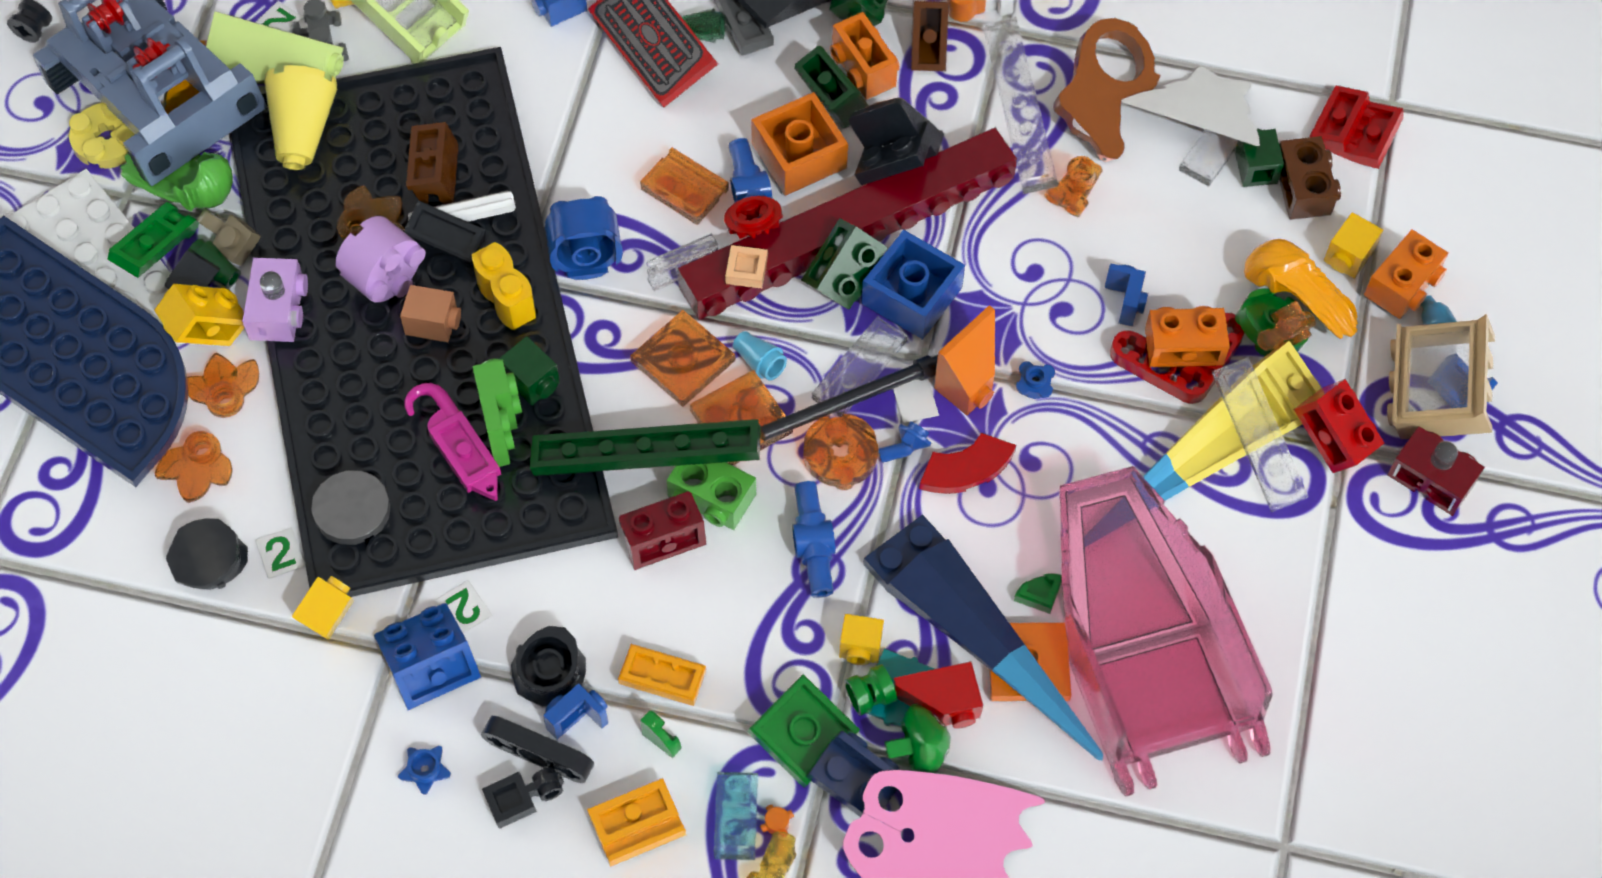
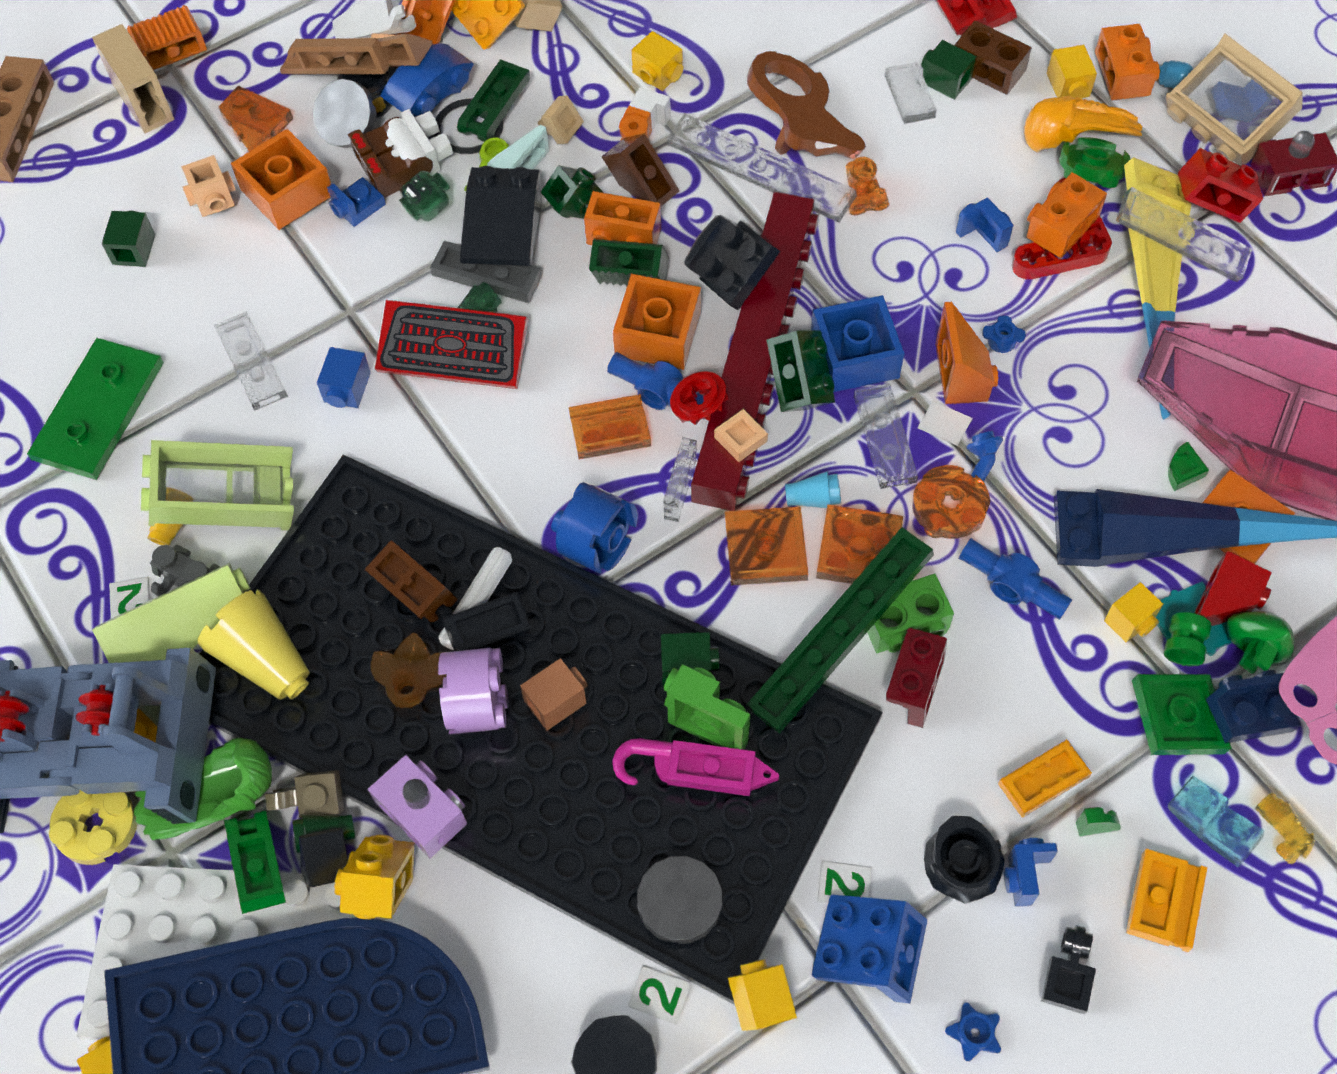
camera: 45 degrees left, 0 degrees up
(194, 471) = (516, 1005): clear orange plate -> none
(224, 381) = (447, 911): clear orange plate -> none
(504, 285) = (591, 618): yellow brick -> none
(537, 749) = (1038, 926): black beam -> none
(776, 819) = (1242, 795): orange piece -> none
(921, 369) = (927, 397): black bar -> none
(968, 467) = (1039, 432): red tile -> none
(1204, 103) = (875, 63): white sticker -> none
(1290, 325) = (1121, 148): clear orange plate -> none

